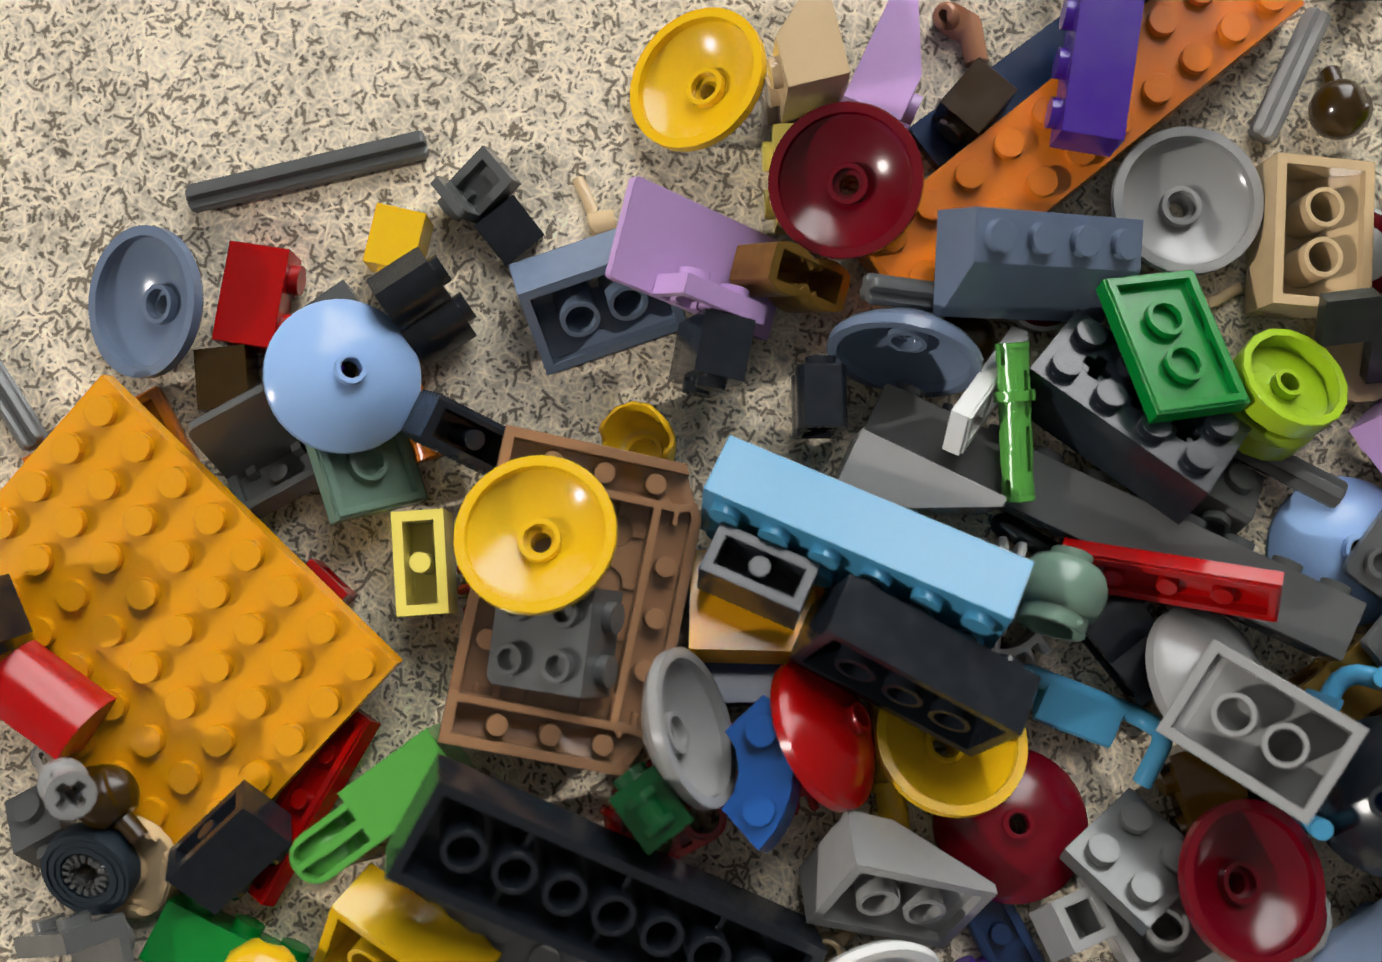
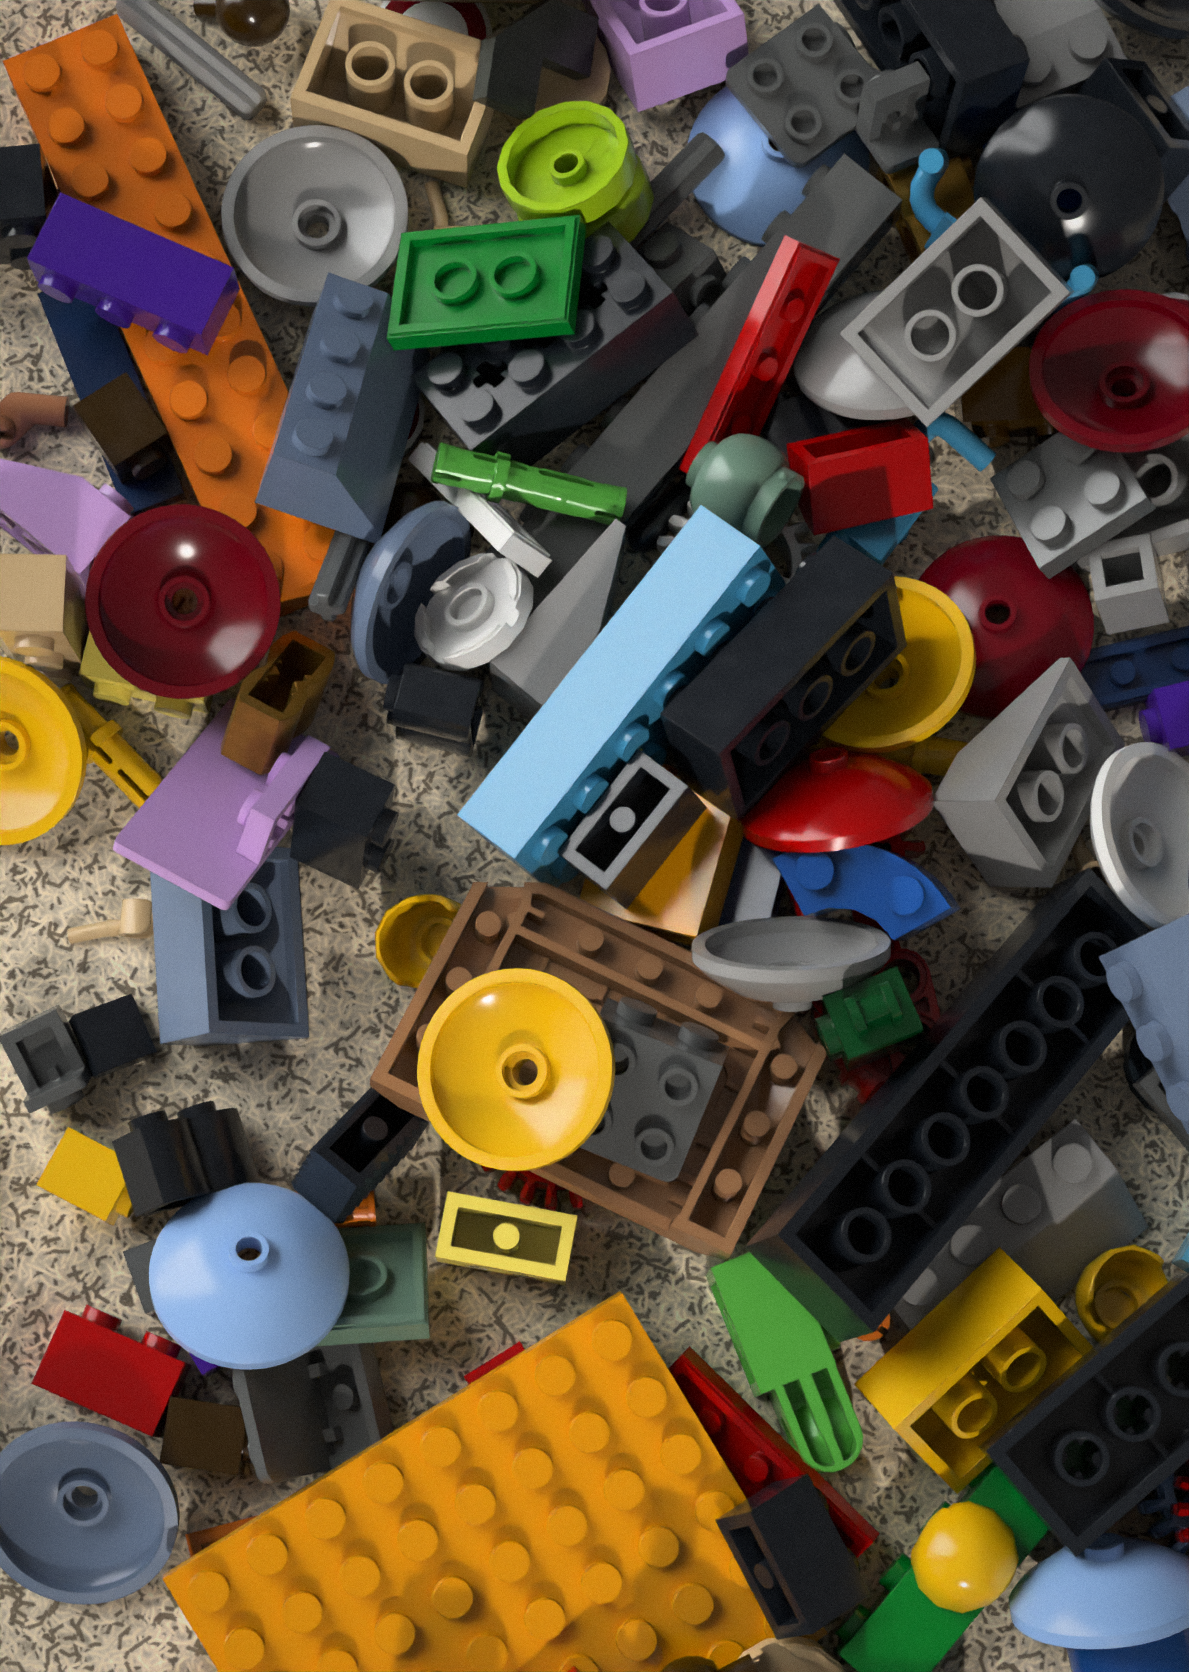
camera: 75 degrees left, 5 degrees down
(727, 161) = (112, 751): none -> yellow pin
(900, 407) = (474, 612): none -> white tile
(1101, 686) = (862, 475): none -> red brick

